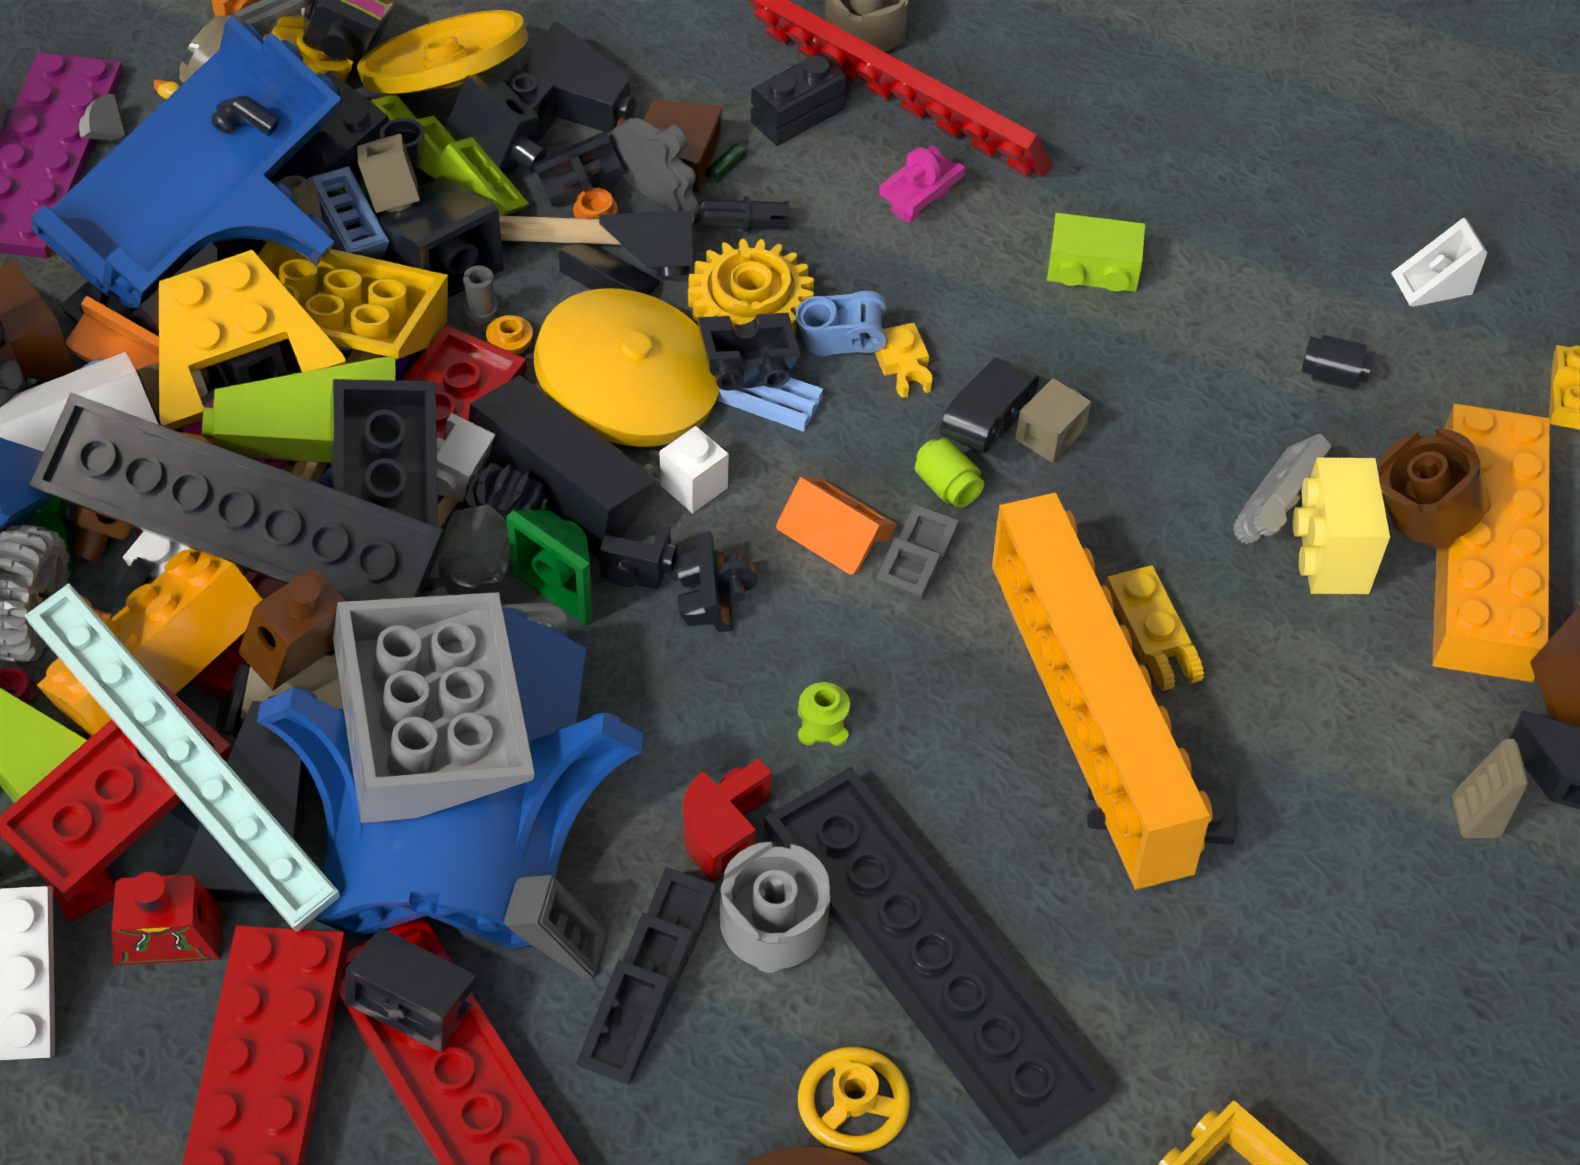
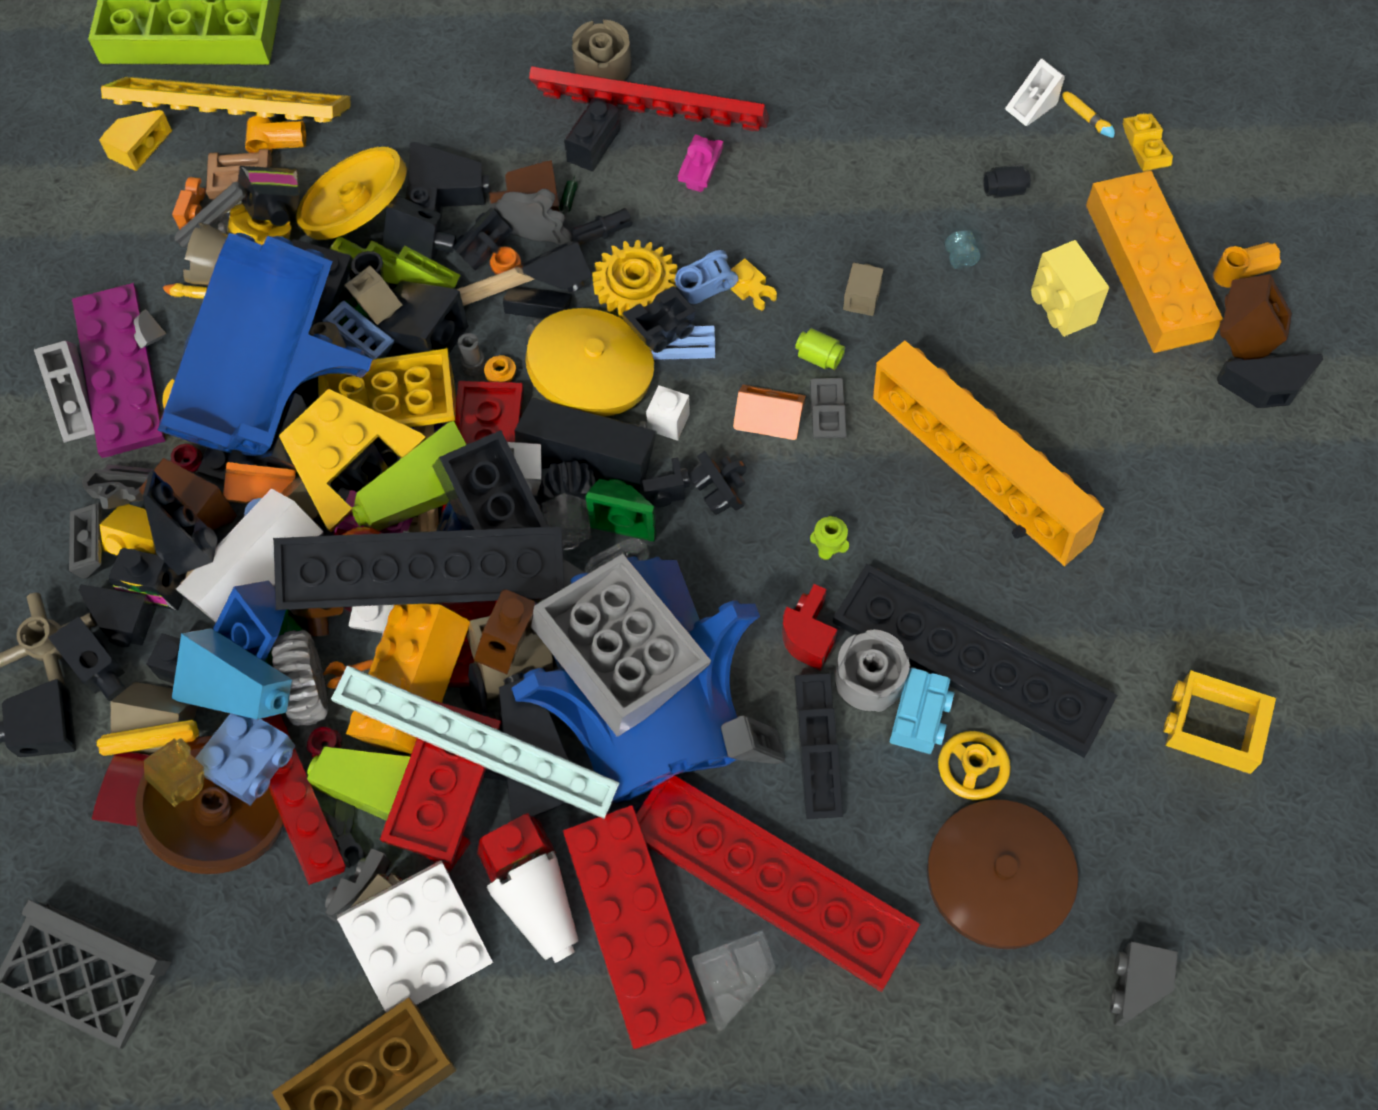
camera: 20 degrees left, 10 degrees up
(55, 284) = (184, 452): none -> dark red plate
(136, 576) = (366, 644): black tile -> none
(148, 1005) = (538, 906): none -> white cone
(241, 111) = (256, 292): black arm -> none
(409, 989) = (691, 821): black hinge -> none
(816, 991) = (920, 711): none -> medium azure brick
(989, 405) = (823, 296): black beam -> none
(1096, 252) = (829, 166): lime brick -> none
(1154, 625) = (991, 394): yellow hinge -> none
(1223, 423) = (962, 249): none -> clear light blue wheel
(1279, 490) = (1017, 278): light grey hinge -> none
(1434, 487) = (1117, 243): reddish brown brick -> none
(1491, 793) = (1229, 423): dark tan slope -> none
(1520, 344) = (1102, 126): none -> yellow piece

